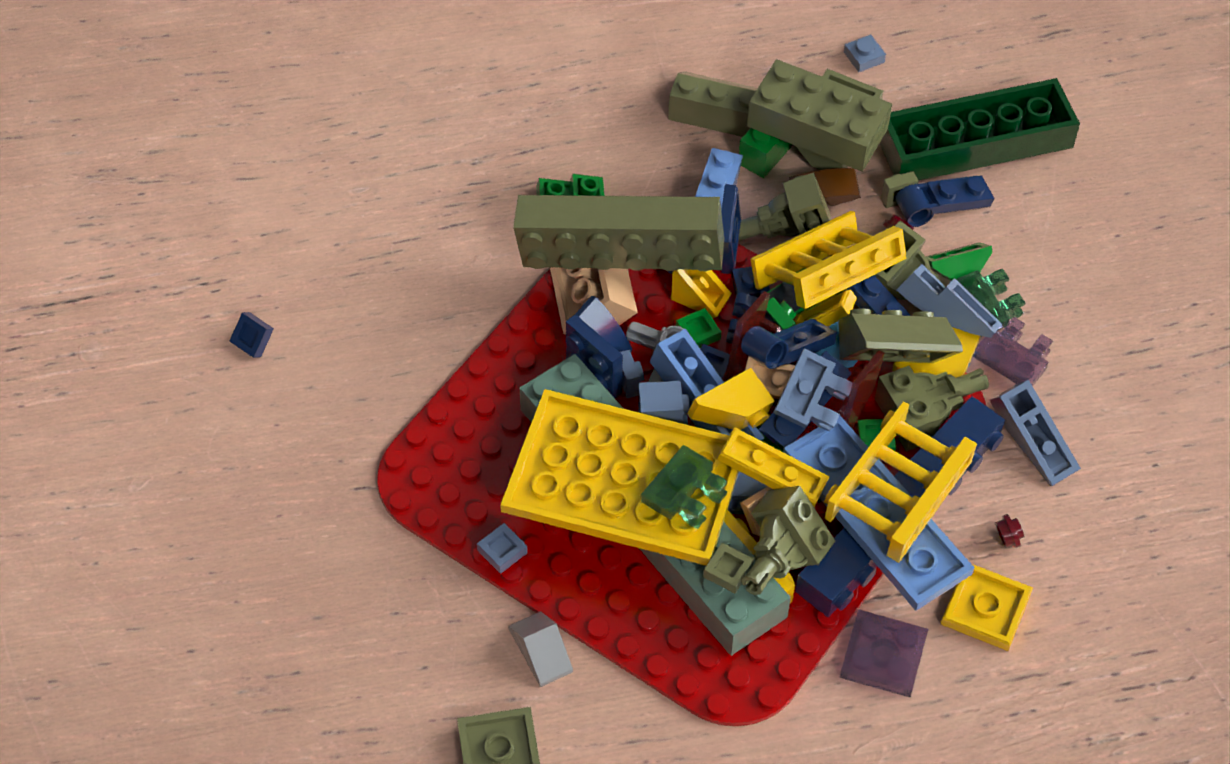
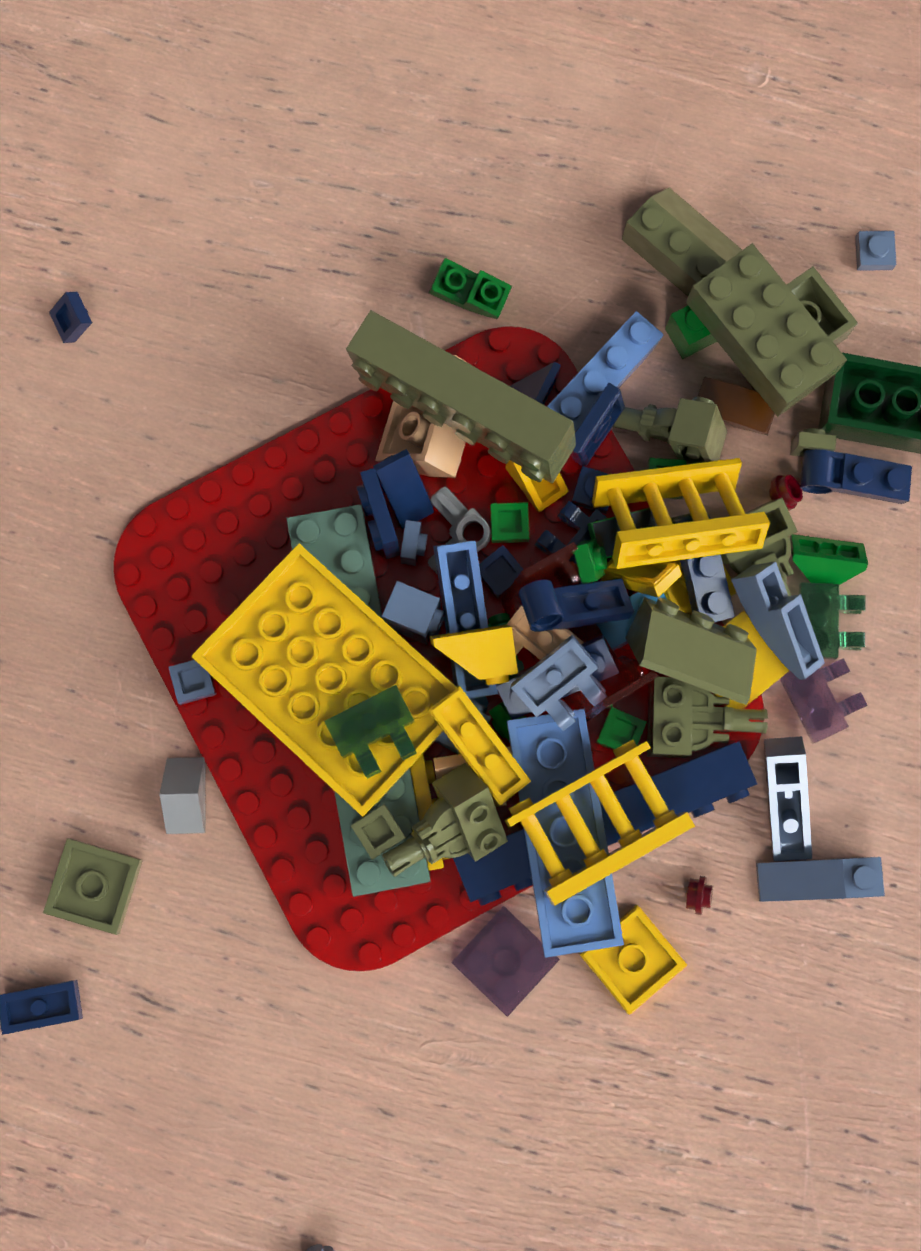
camera: 25 degrees right, 25 degrees up
(1098, 477) = (820, 879): none -> sand blue slope

